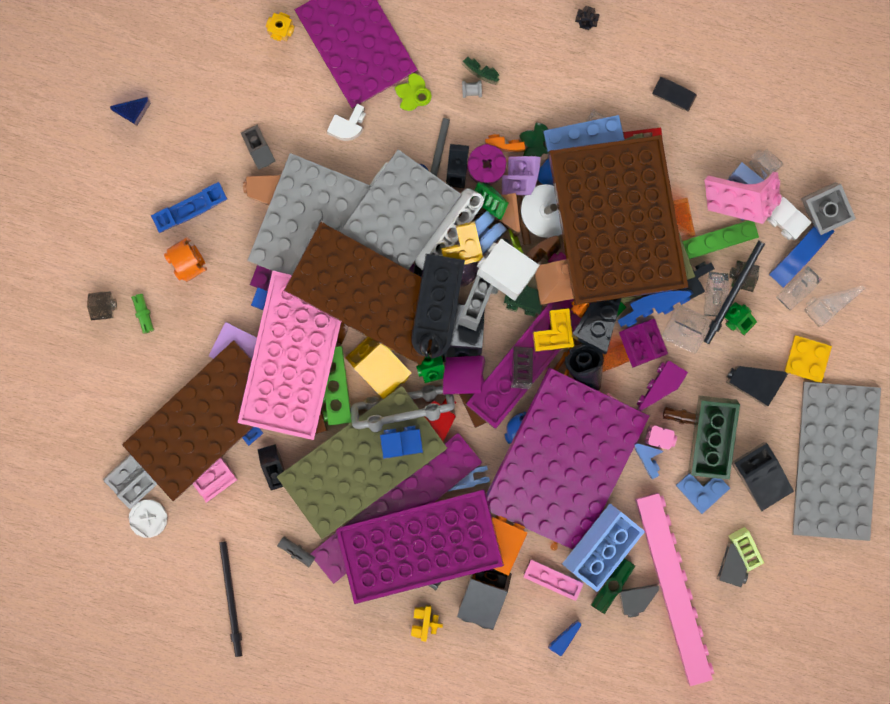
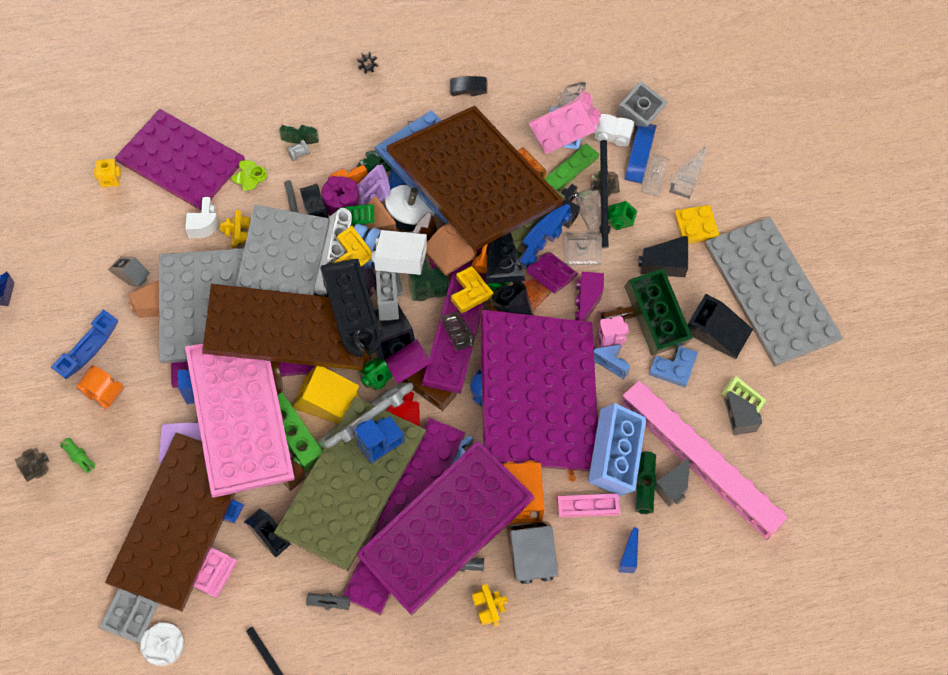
camera: 25 degrees left, 25 degrees down
(379, 143) = (238, 221): none -> yellow hips

